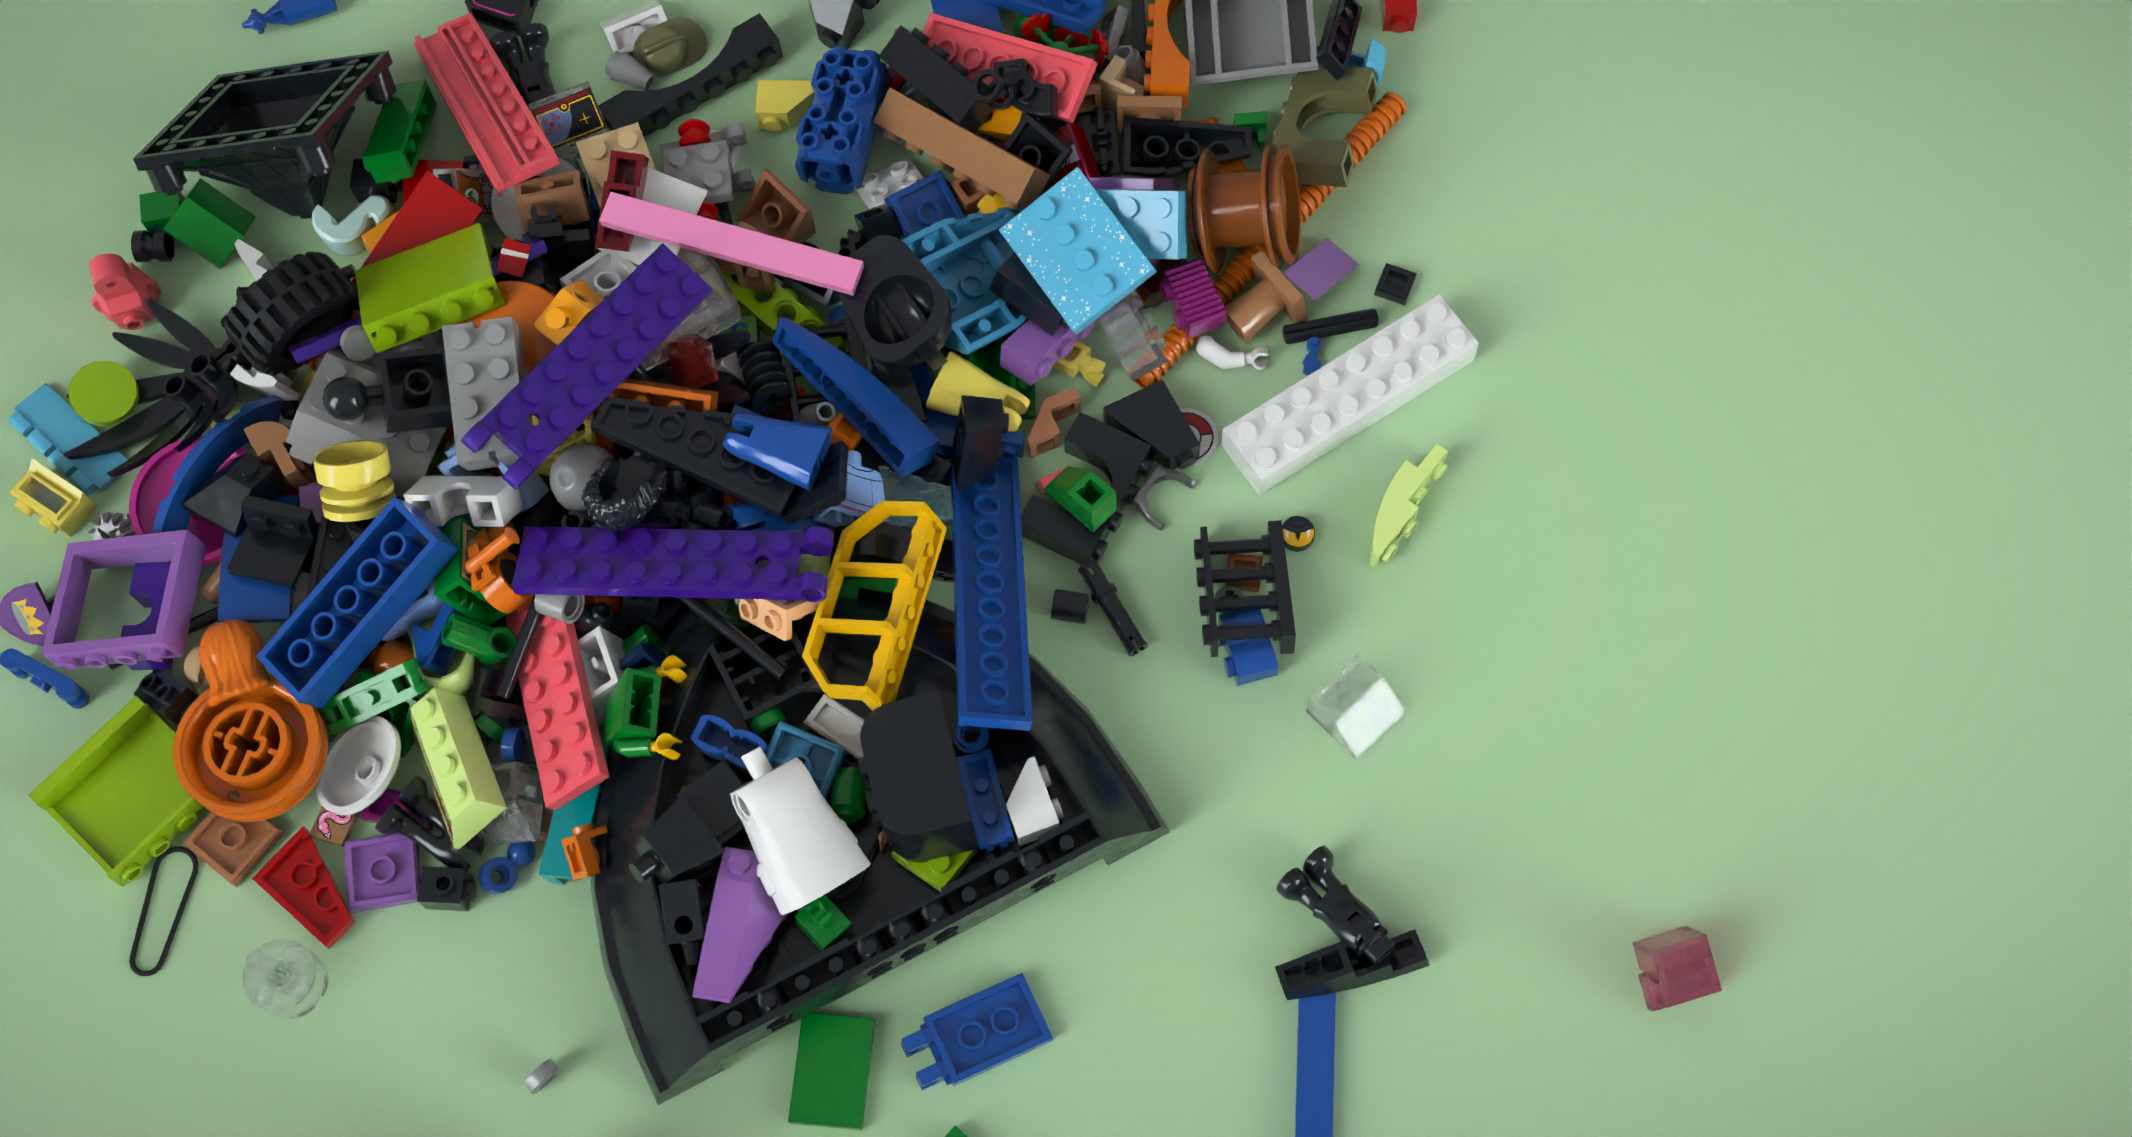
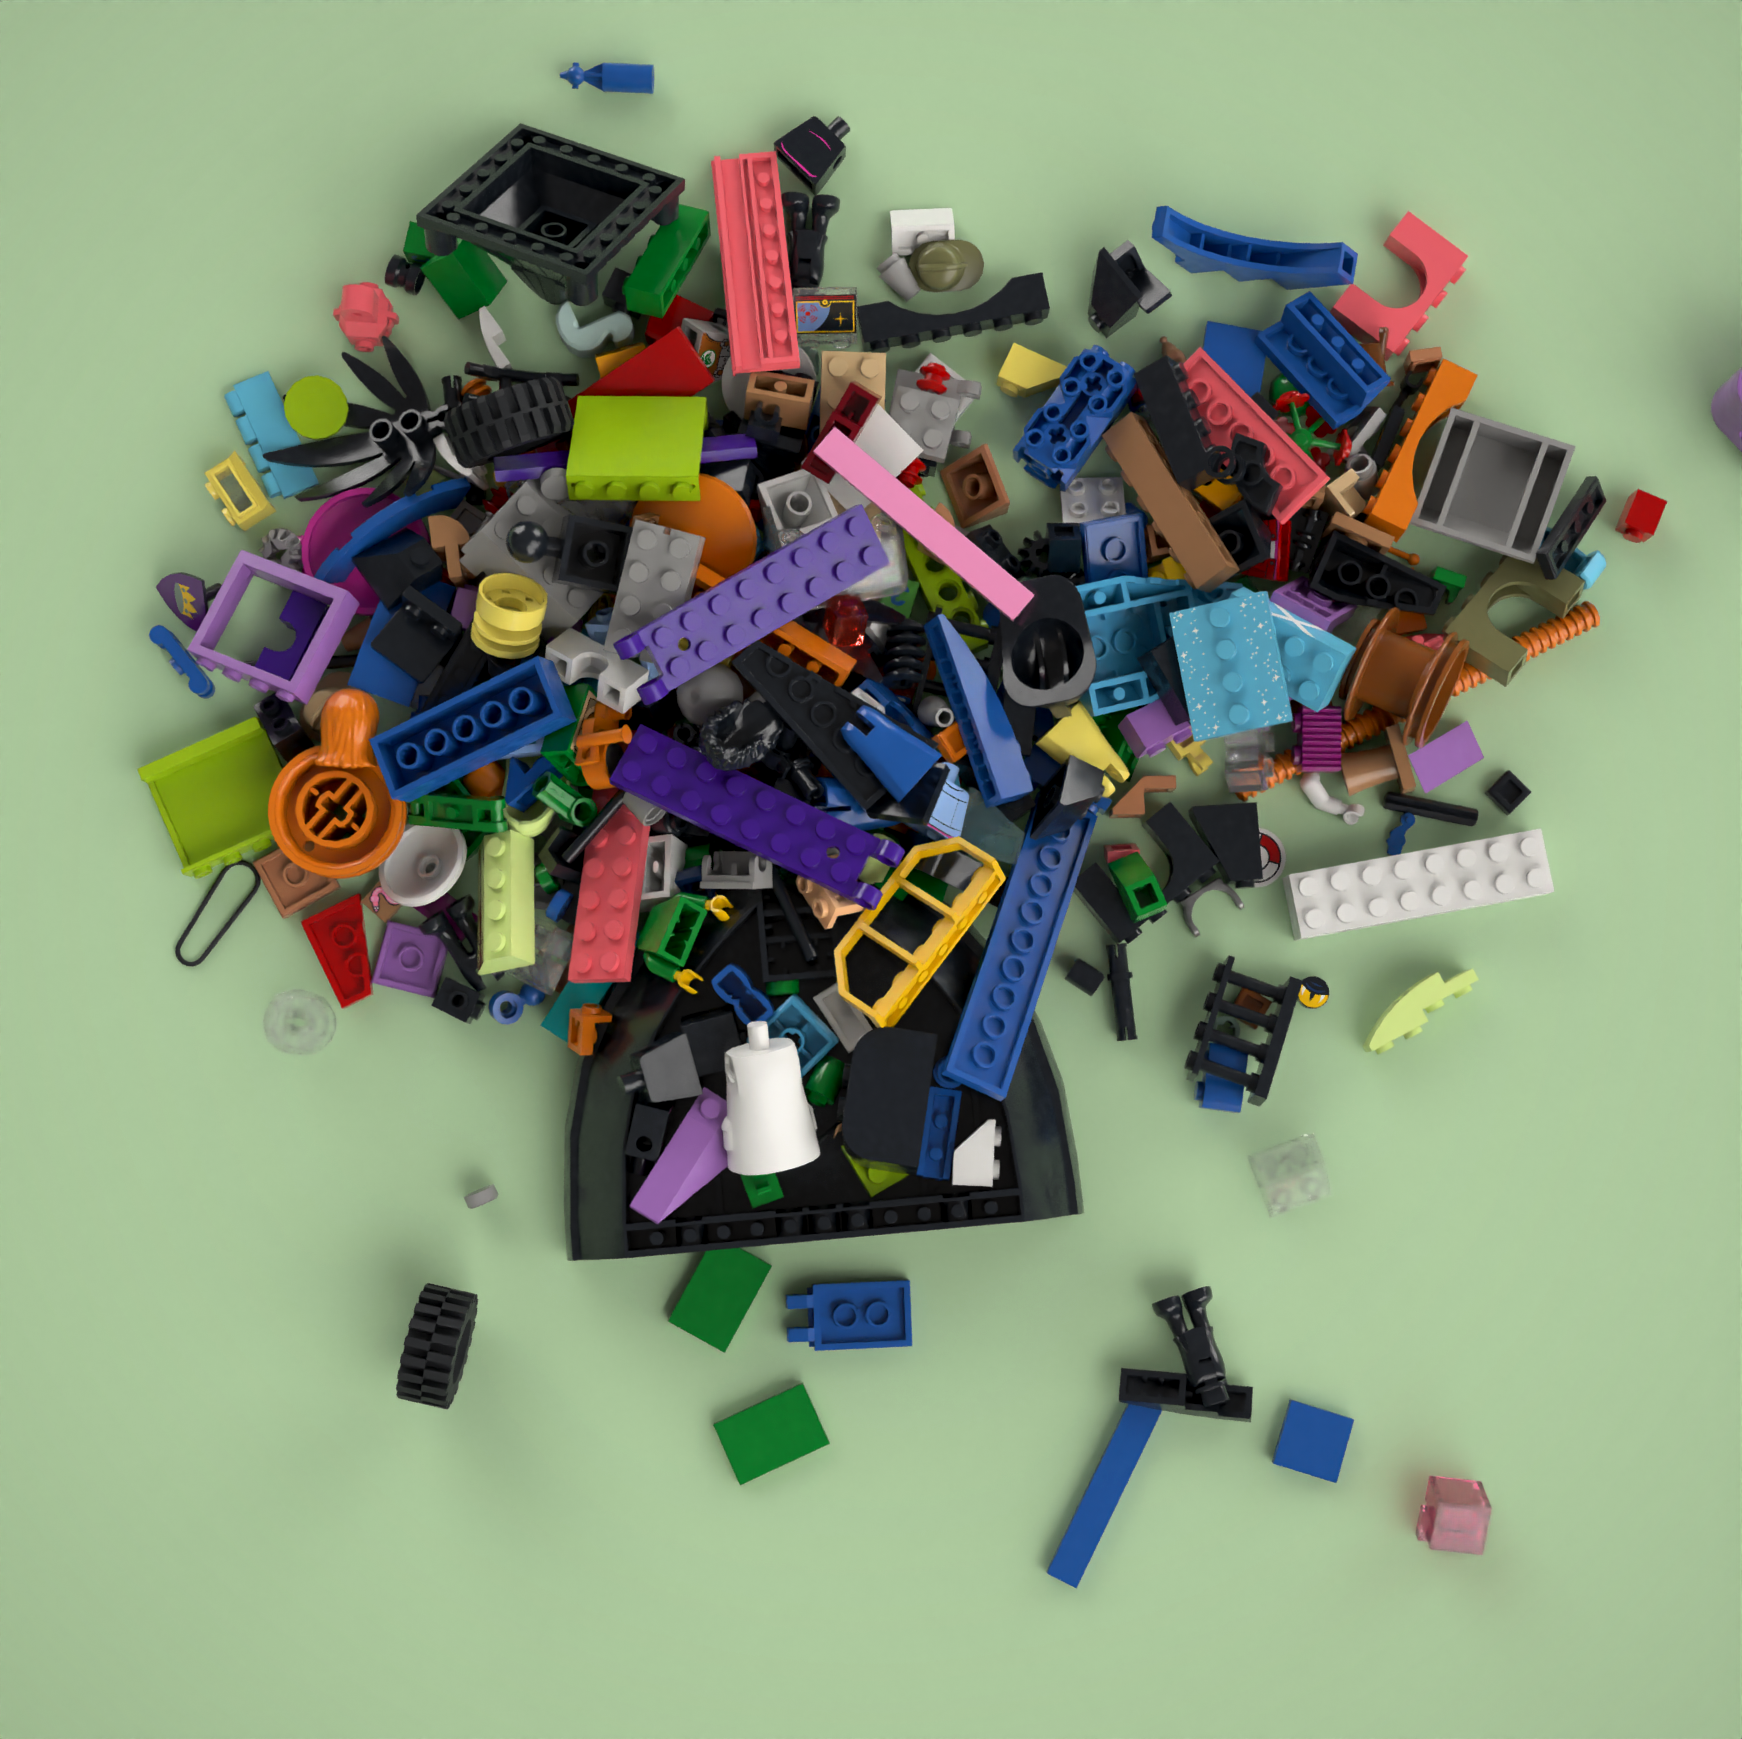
camera: 15 degrees right, 15 degrees up
(513, 257) = (723, 454): red sticker -> none
(567, 311) = (750, 544): light orange torso -> none
(678, 630) = (736, 871): none -> light grey hinge
(1501, 959) = (1313, 1441): none -> blue tile

